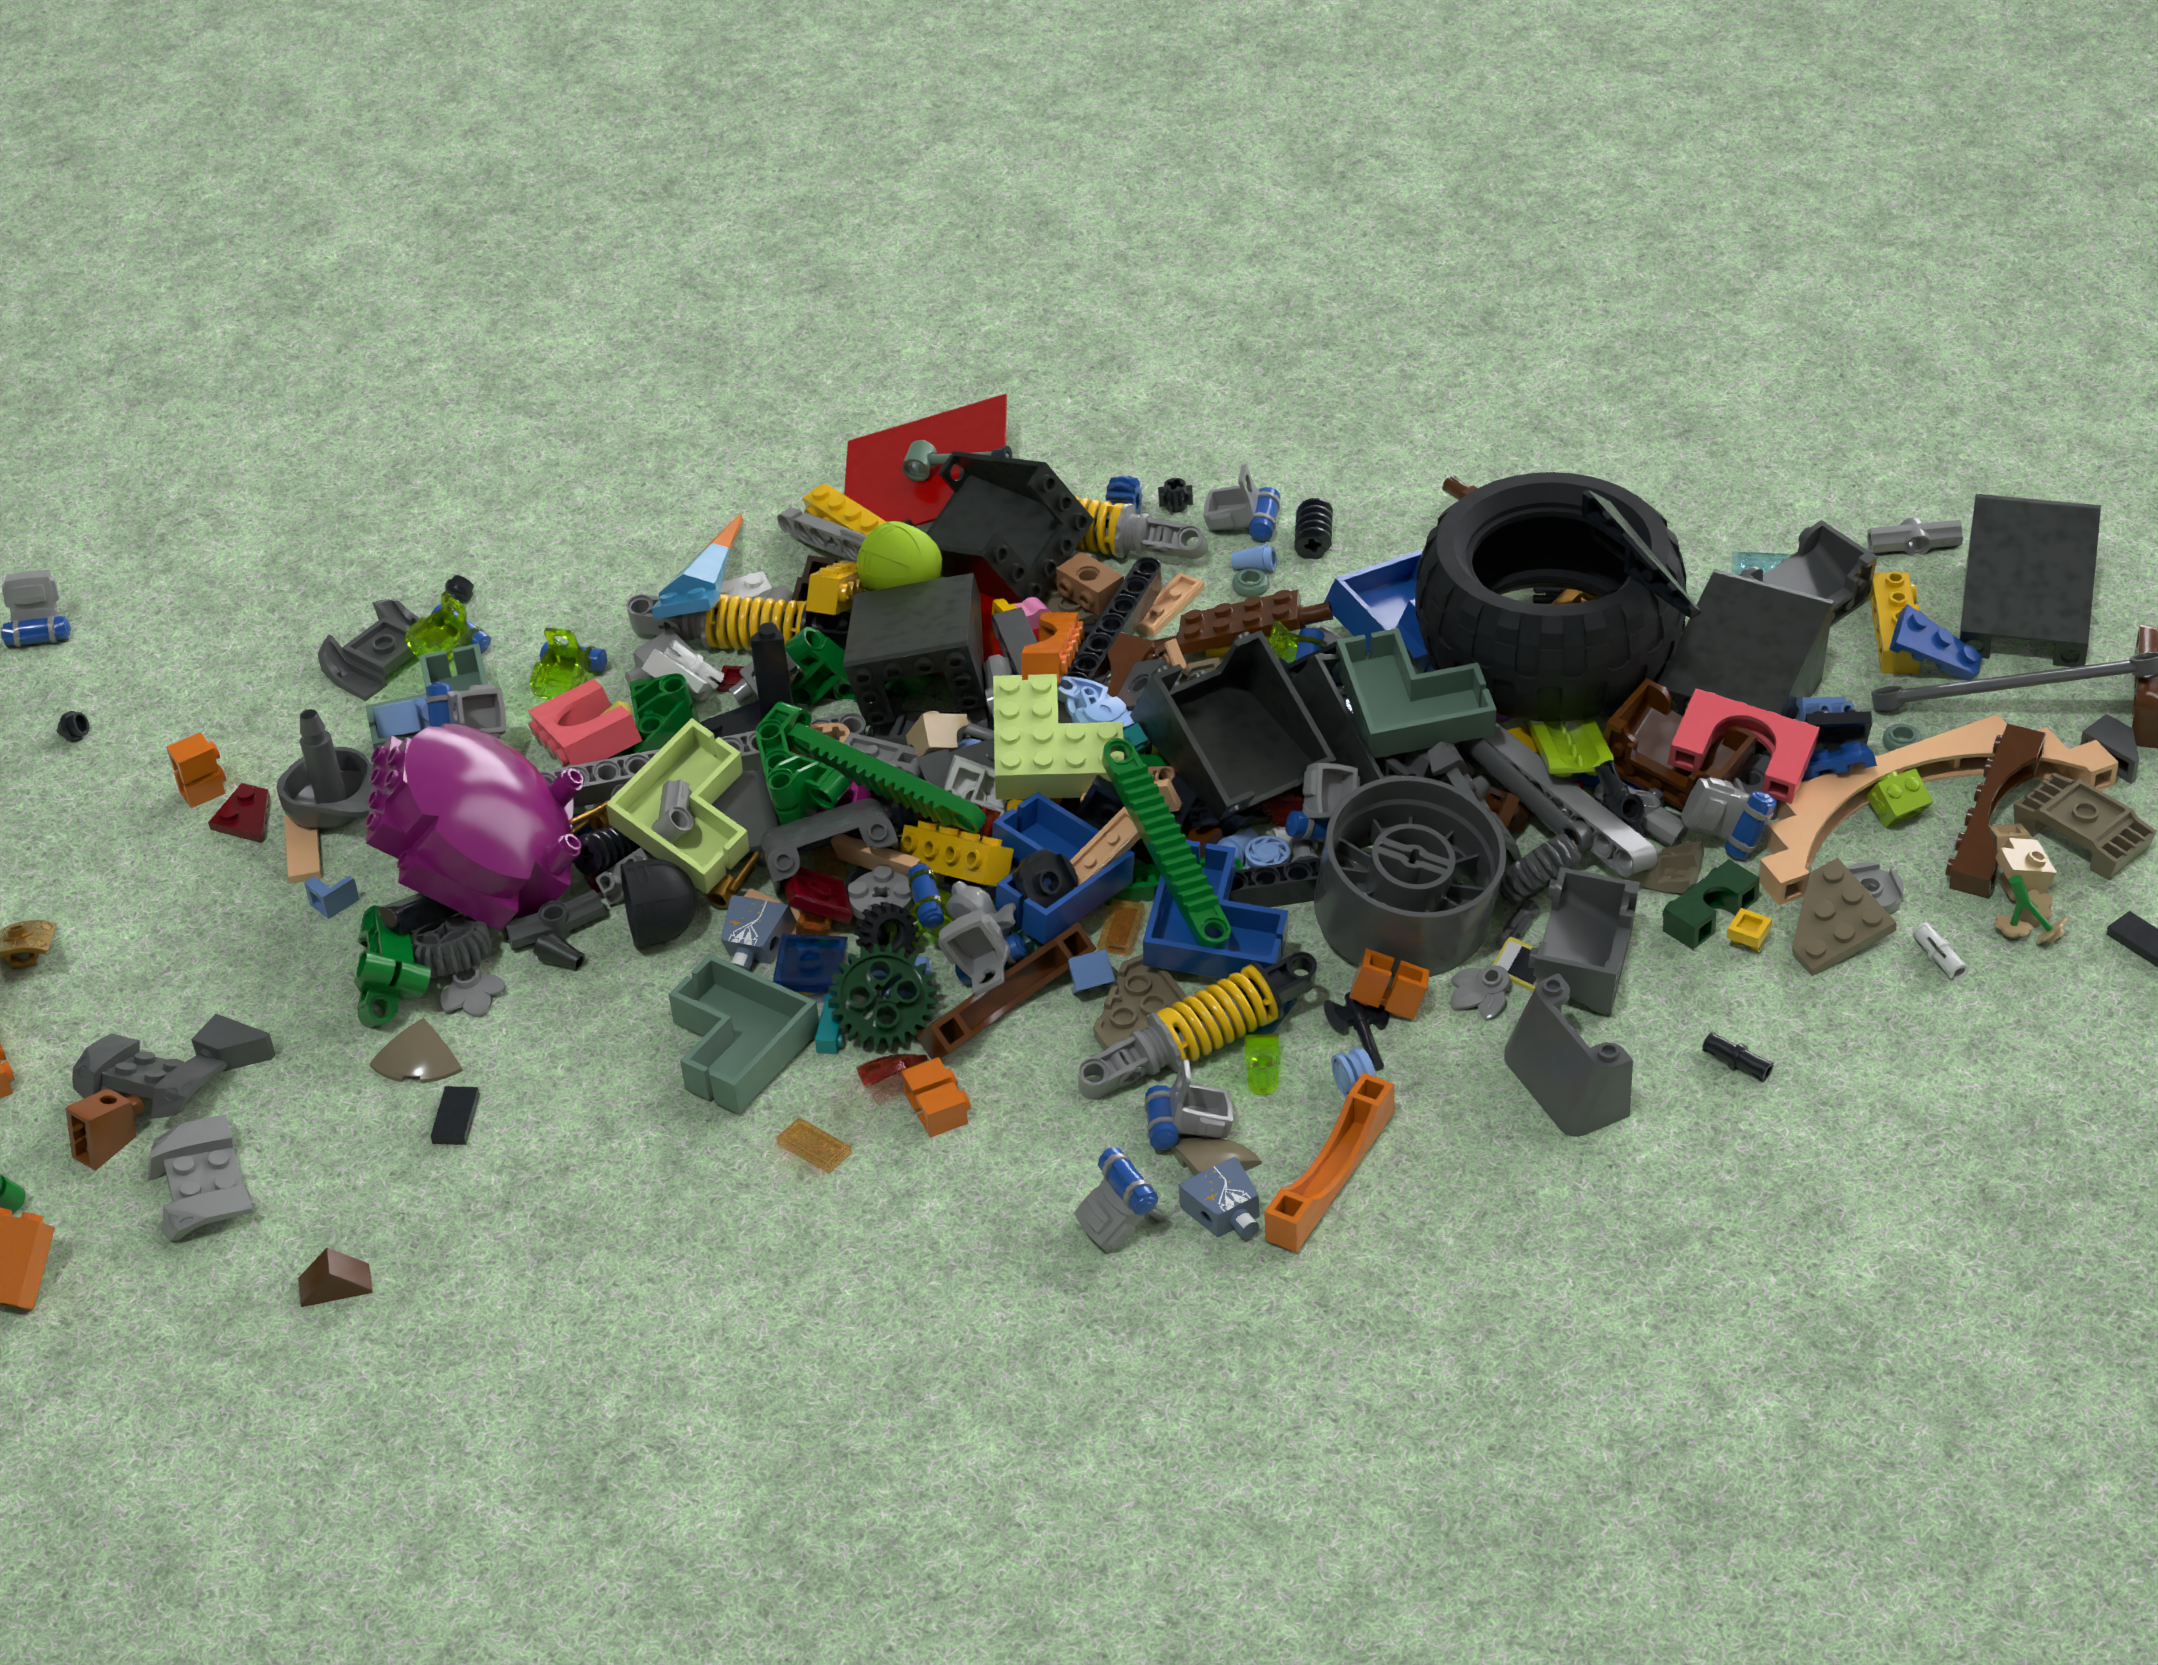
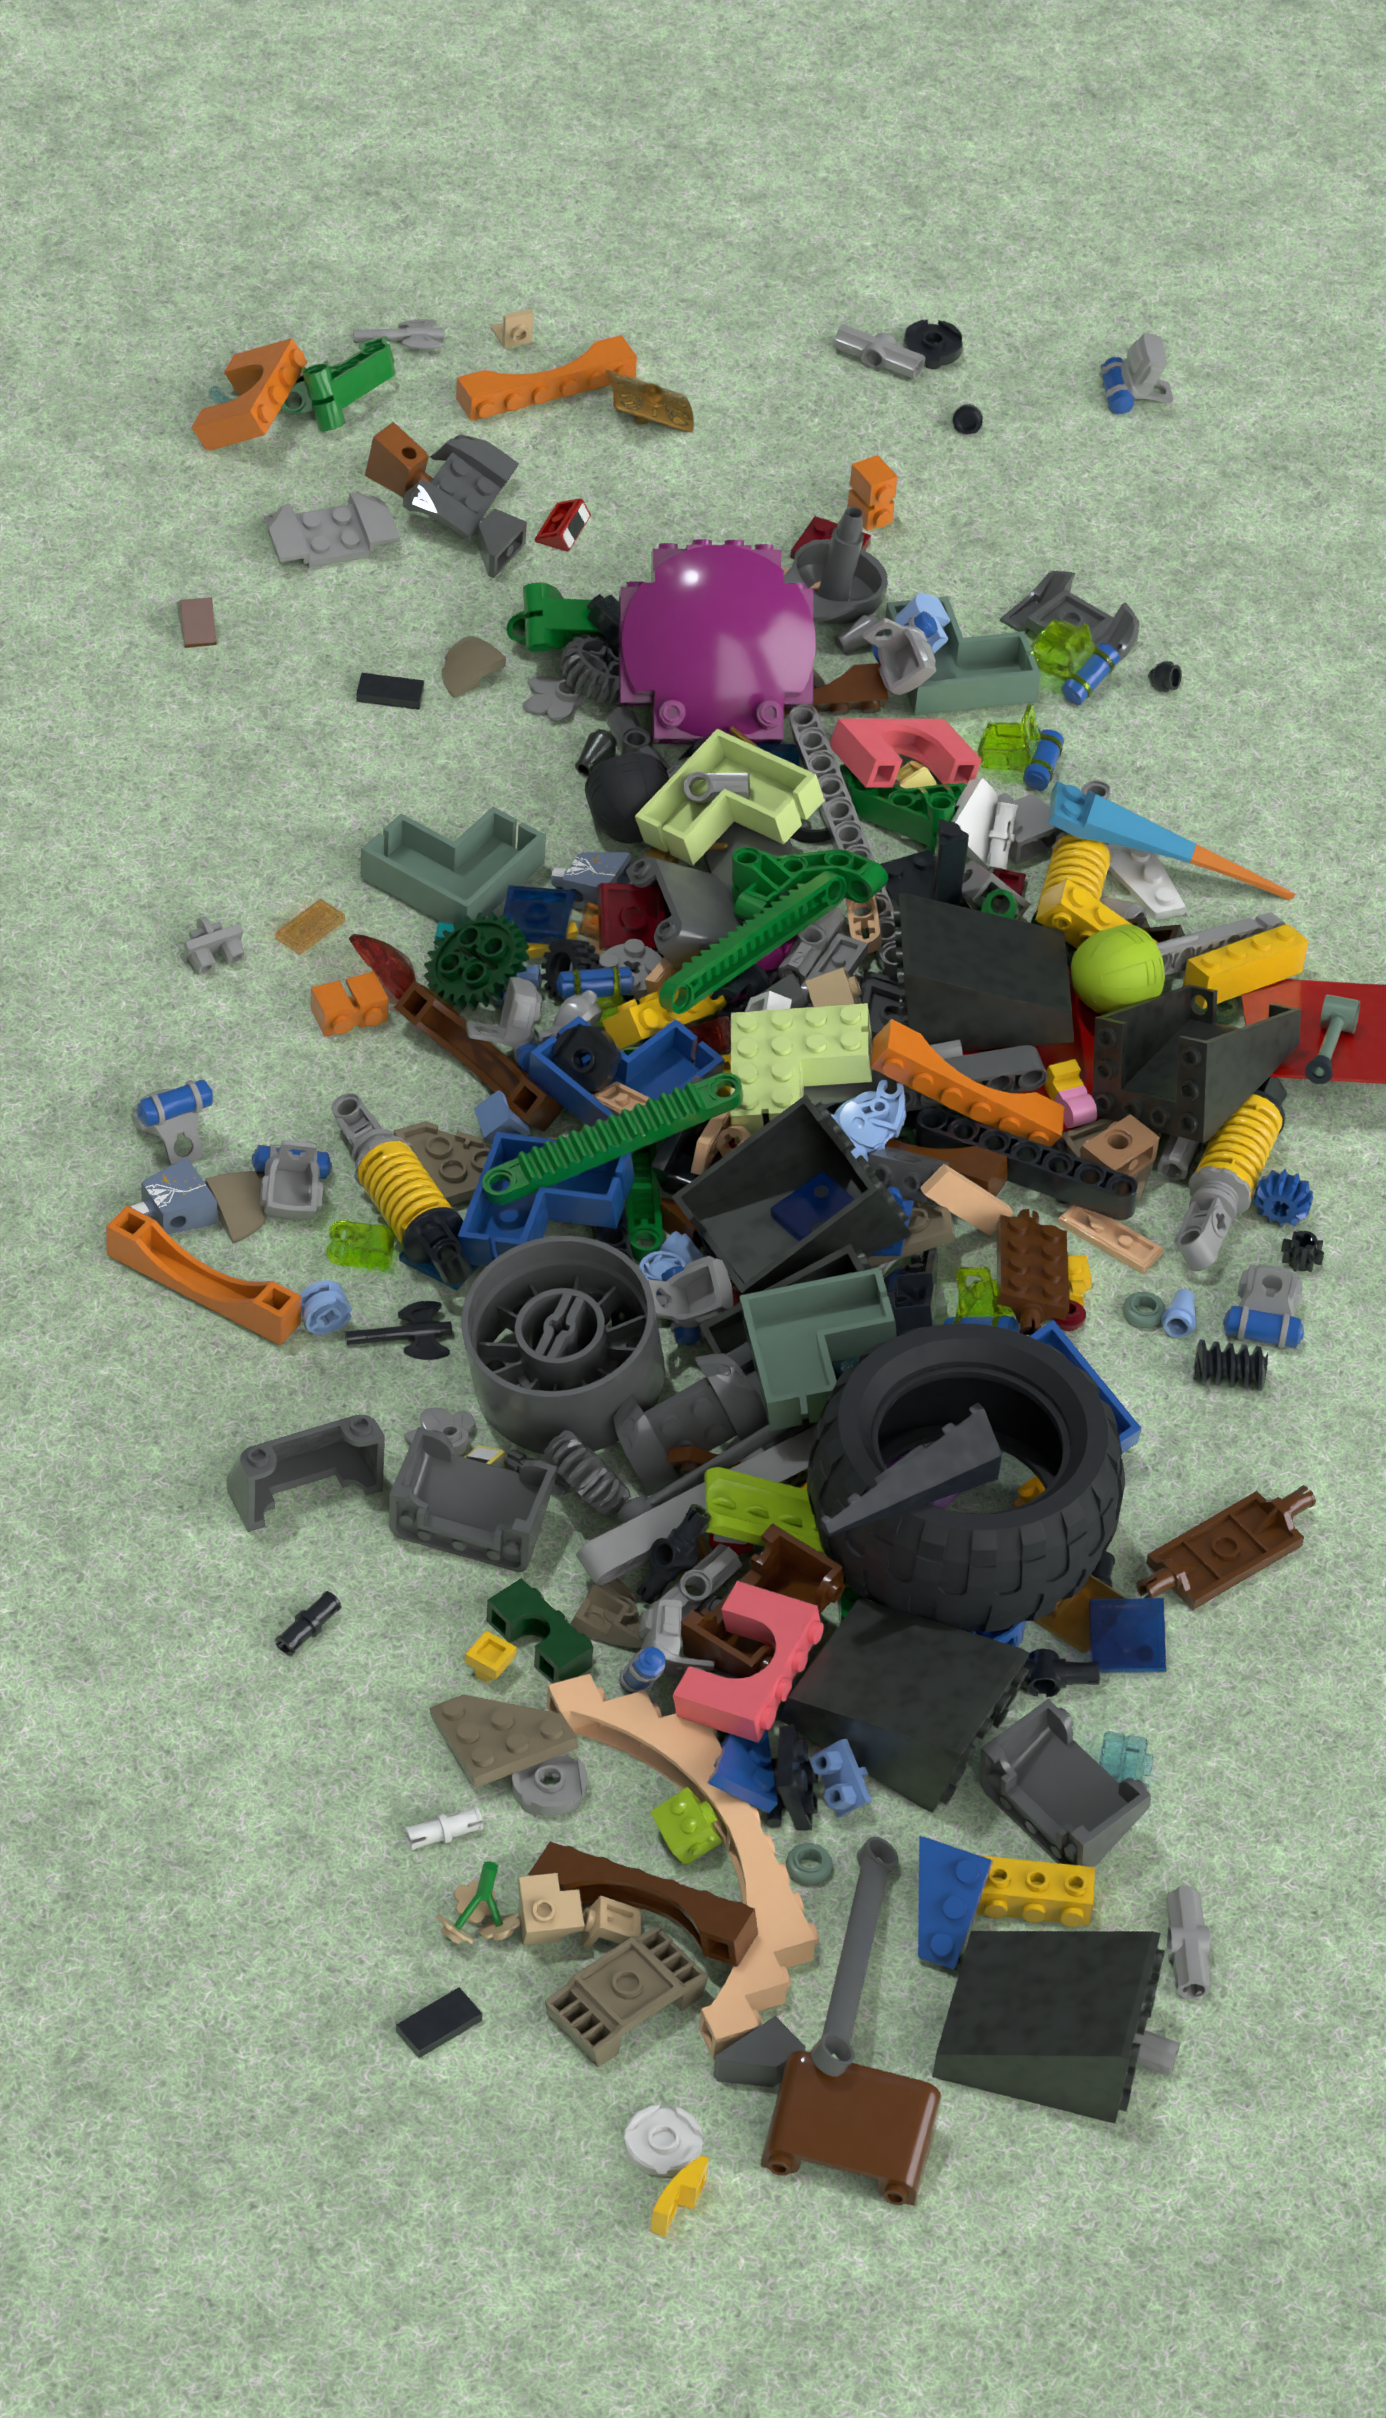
camera: 85 degrees right, 5 degrees up
(196, 1004) = (564, 524): none -> red slope
(854, 1210) = (212, 939): none -> light grey hips
(1226, 722) = (810, 1205): none -> clear blue tile
(1404, 992) = (440, 1332): orange piece -> none

